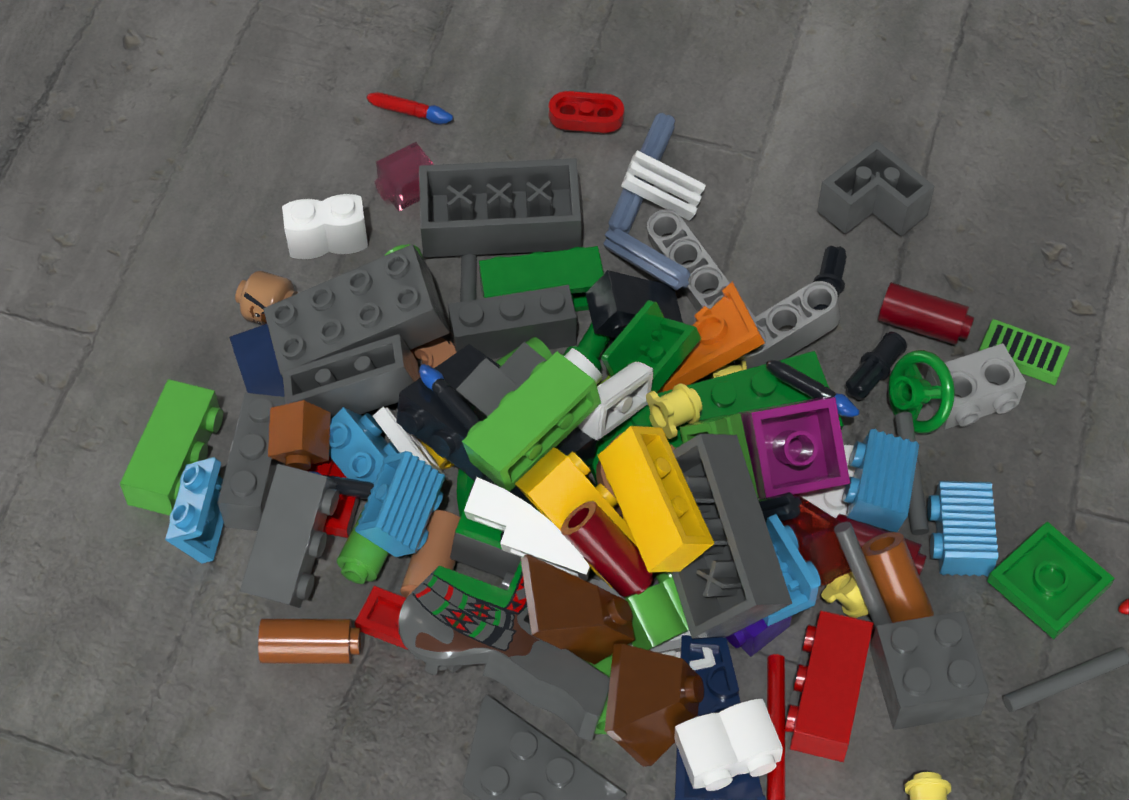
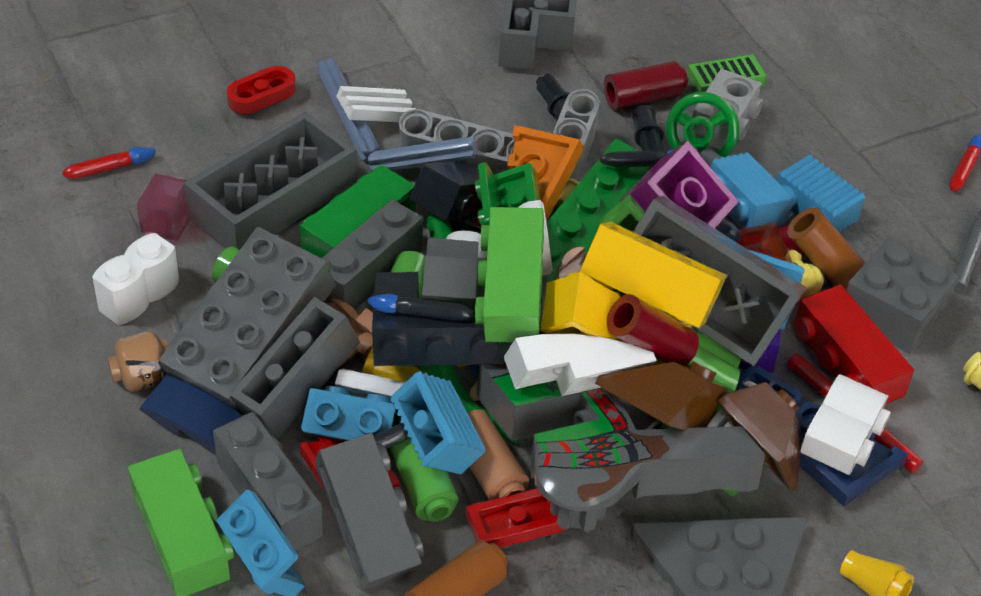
camera: 45 degrees left, 10 degrees down
(299, 434) = (296, 429): dark orange brick -> none
(674, 409) = (575, 224): light yellow brick -> none
(862, 573) = (809, 250): dark grey bar -> none
(1050, 580) = (900, 196): green plate -> none

